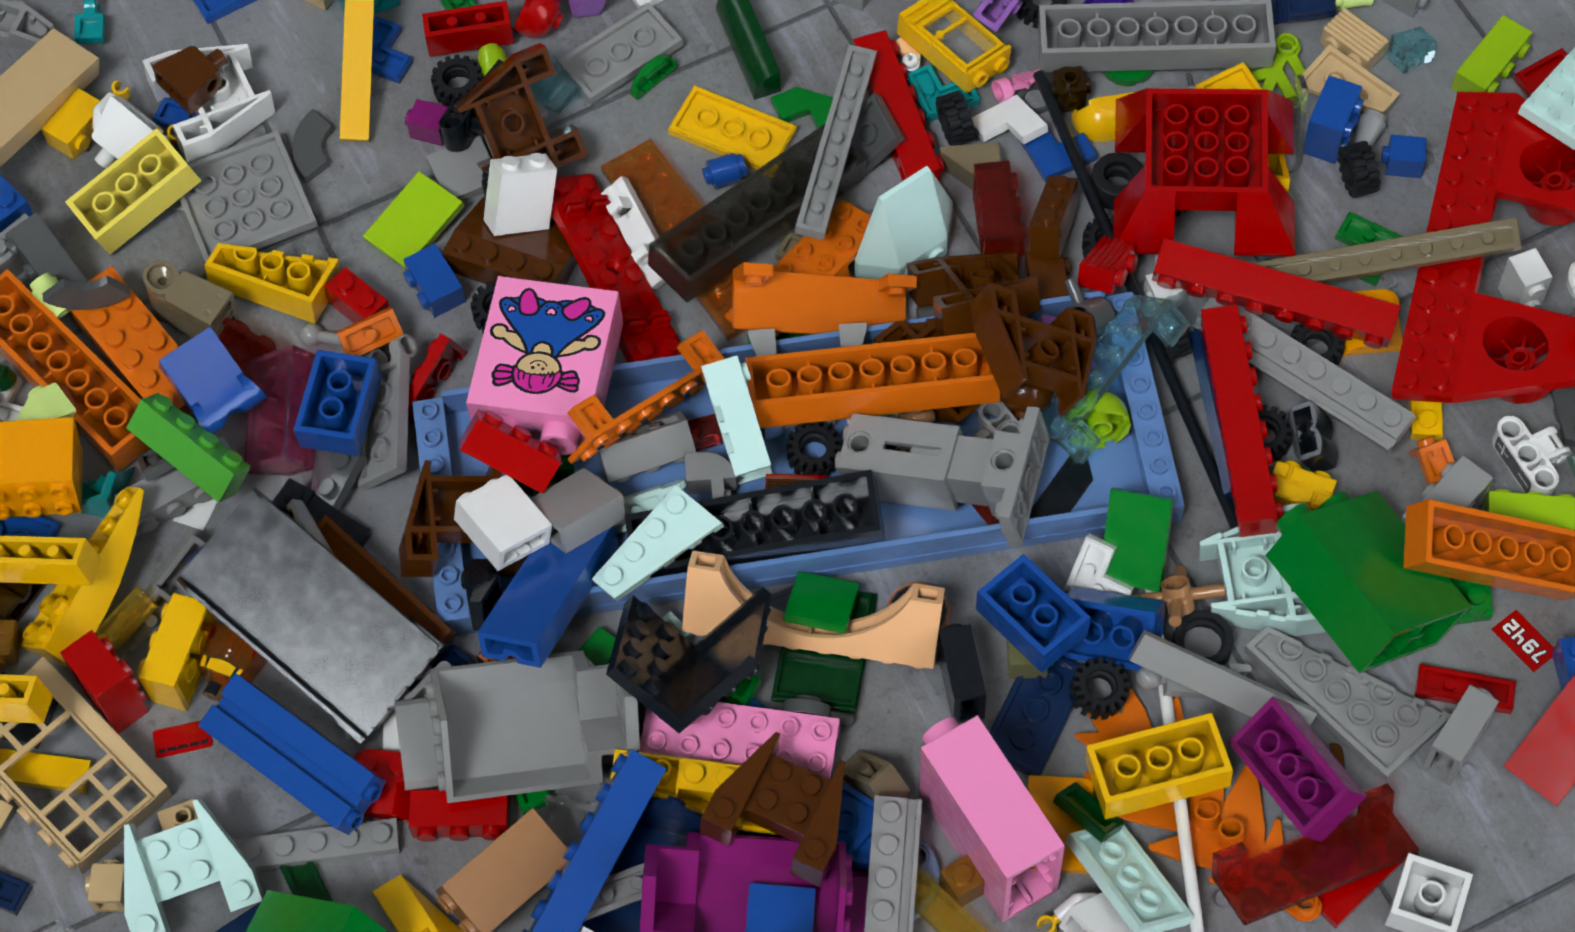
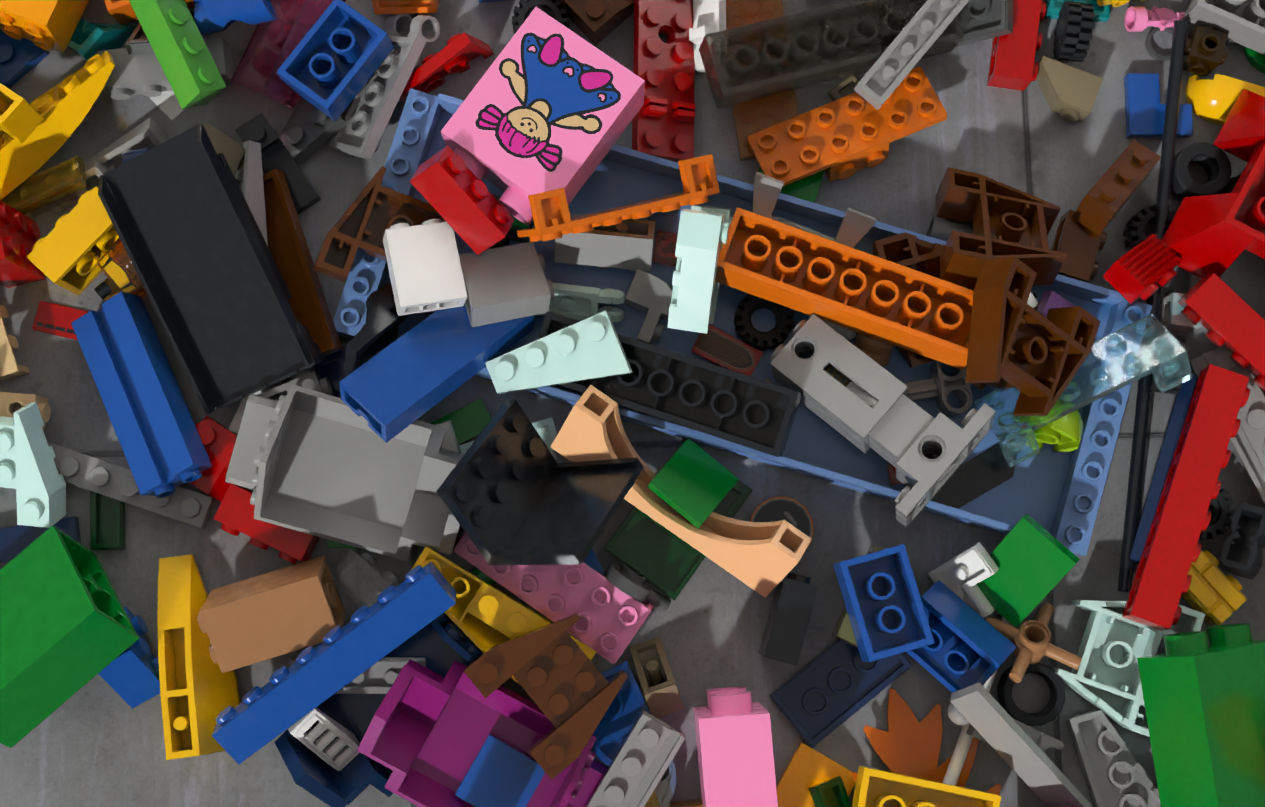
camera: 25 degrees right, 20 degrees up
(814, 302) = (839, 171): orange bracket -> none
(906, 227) = (964, 135): light aqua wedge -> none
(998, 209) = (1064, 153): clear red brick -> none
(1010, 115) = (1131, 52): white tile -> none
(1097, 306) = (1103, 308): dark grey piece -> none
(1109, 673) = (927, 703): black tyre -> none

